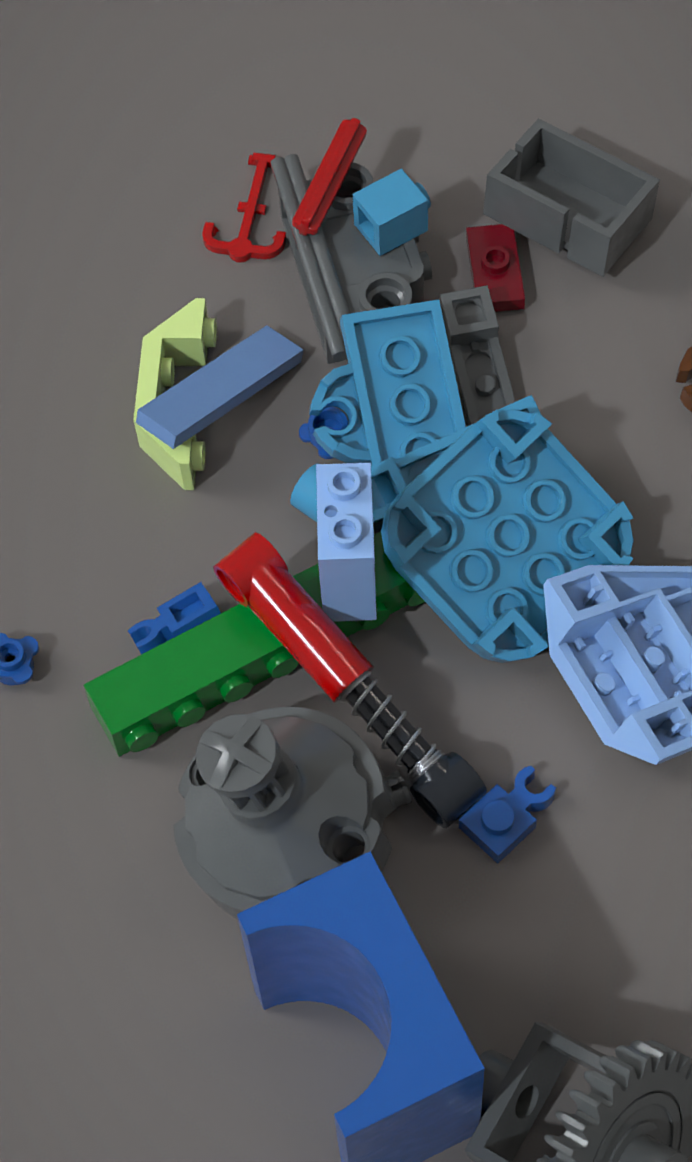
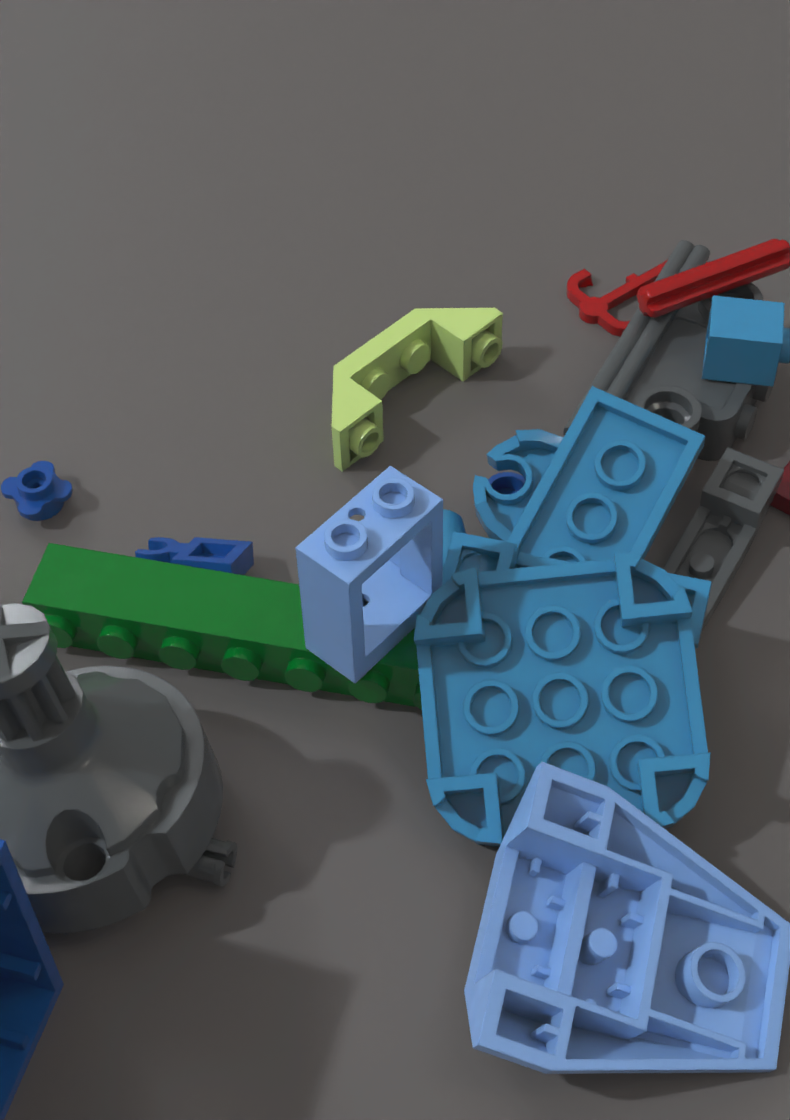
camera: 40 degrees right, 10 degrees down
(219, 387) = (438, 391): medium blue tile -> none
(260, 579) = (262, 885): piece -> none
(504, 819) = (288, 979): blue plate -> none

